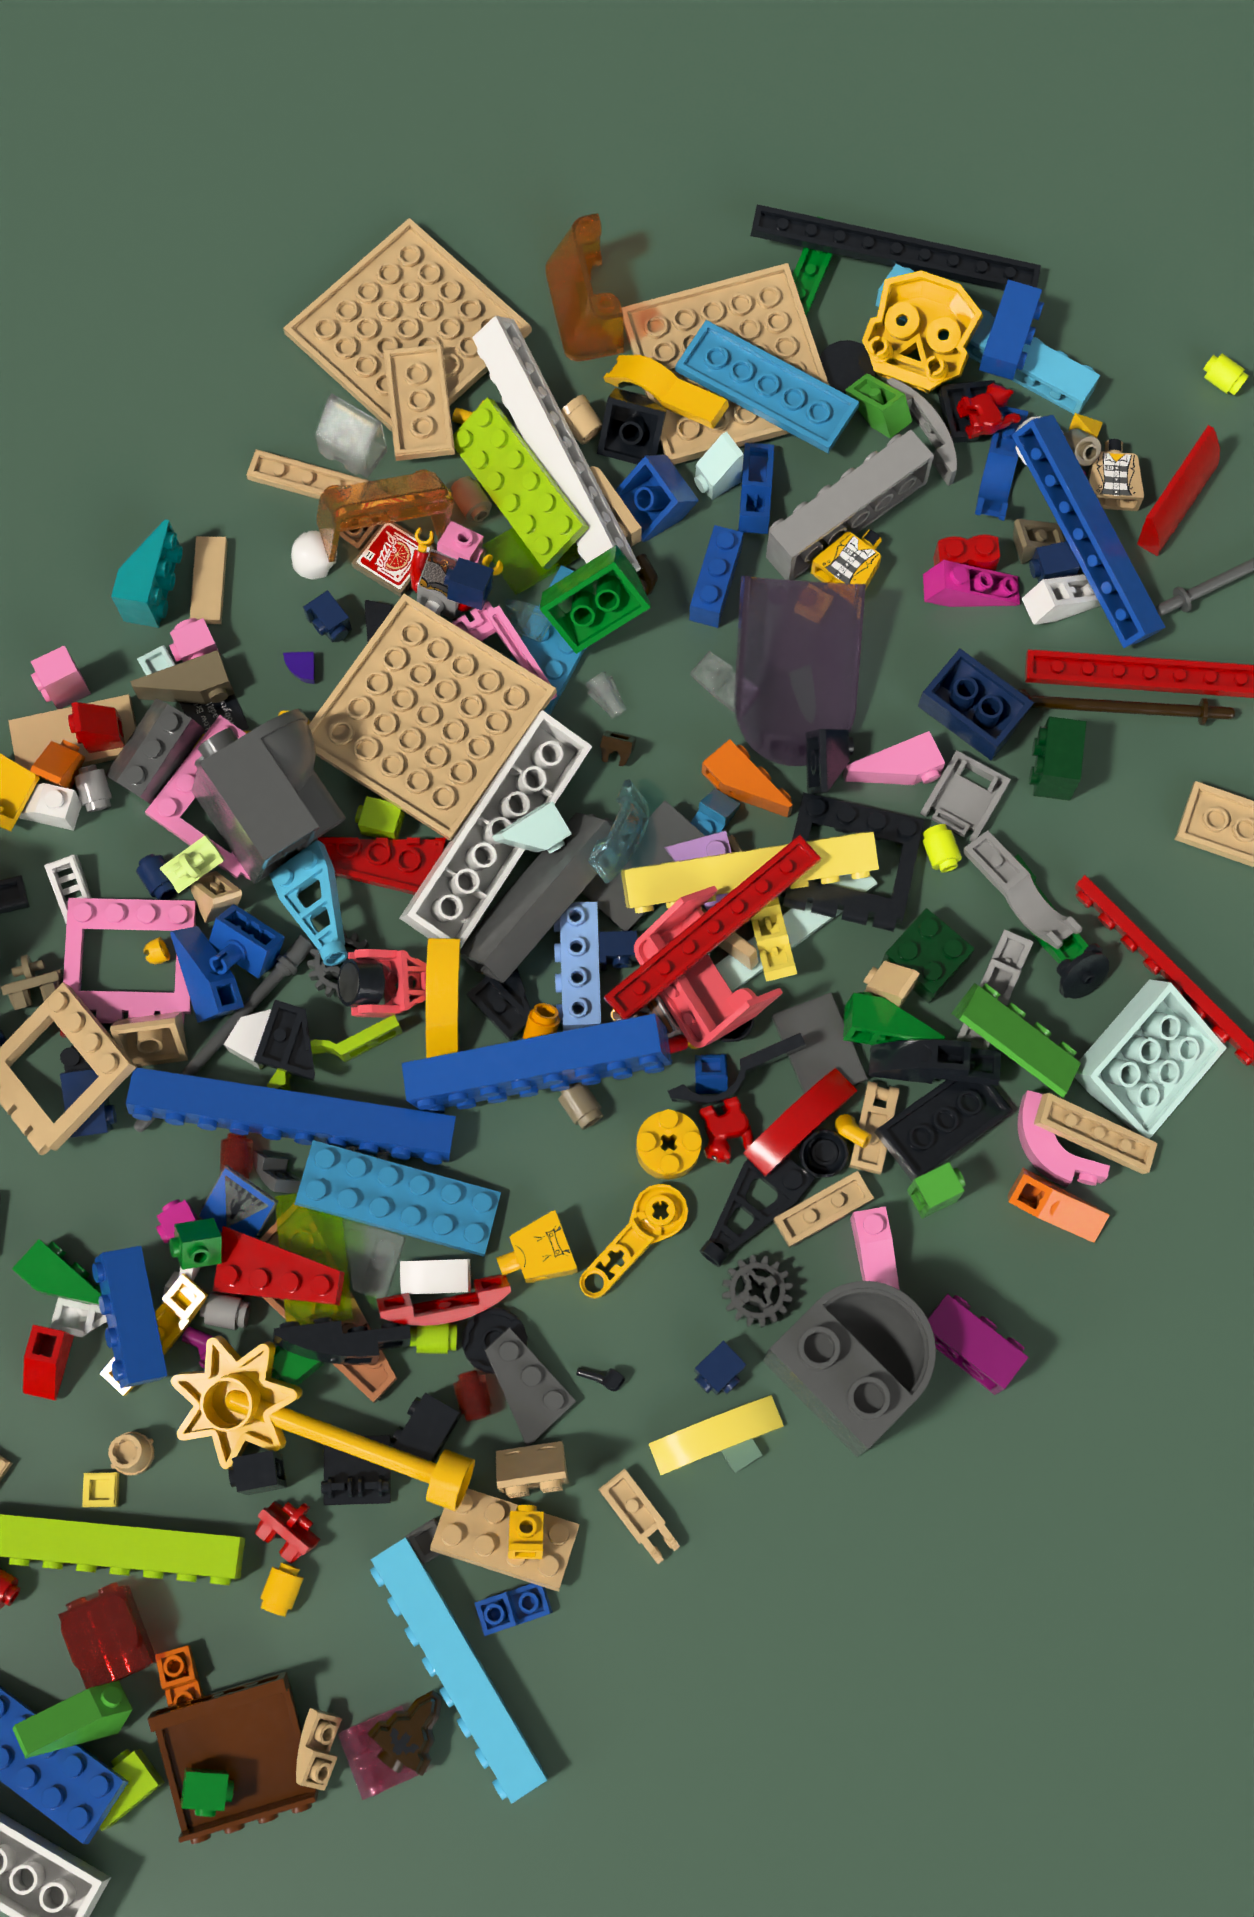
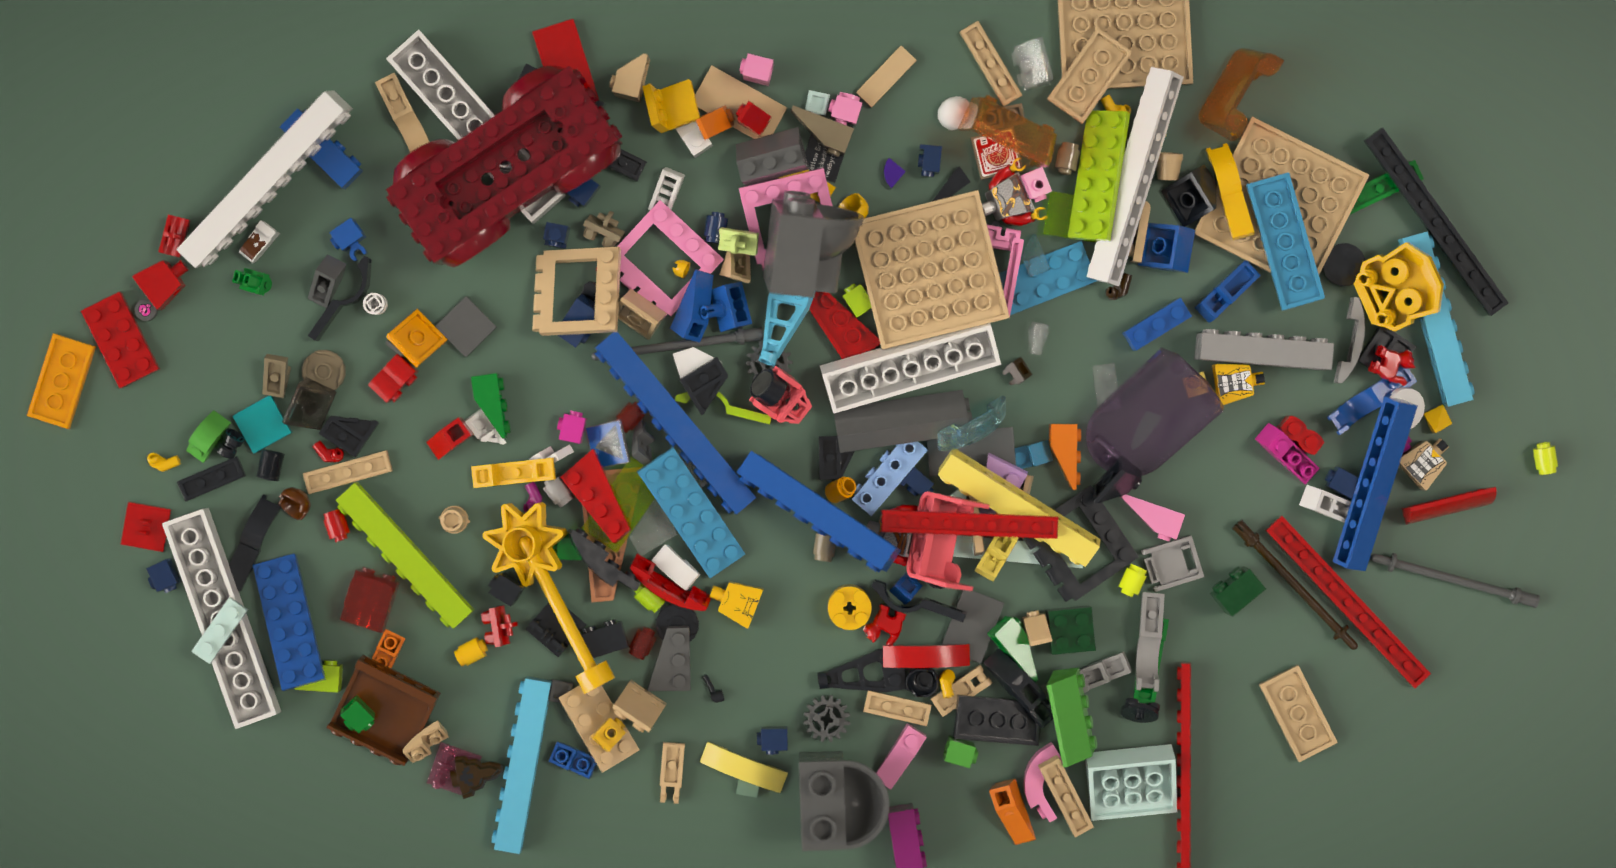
camera: 40 degrees right, 15 degrees up
(77, 1720) = (323, 629): bright green slope -> none
(93, 788) = (723, 147): light grey brick -> none
(100, 1490) = (424, 524): light yellow tile -> none
(129, 1316) = (508, 456): blue brick -> none
(147, 578) = (849, 52): teal slope -> none
(196, 1243) = (571, 449): green brick -> none
(442, 996) = (803, 431): yellow slope -> none
(469, 583) = (1017, 216): dark blue brick -> none
(536, 831) = (928, 386): light aqua slope -> none
(595, 599) = (1075, 285): green slope -> none
(640, 1233) = (795, 637): yellow beam -> none
(719, 467) = (1215, 264): light aqua slope -> none
(880, 405) = (1338, 305): bright green slope -> none
(975, 704) = (1224, 521): dark blue slope -> none
(1012, 330) = (1448, 332): blue brick -> none
(1034, 534) = (1347, 459): dark tan slope -> none
(1084, 446) = (1420, 431): dark tan brick -> none

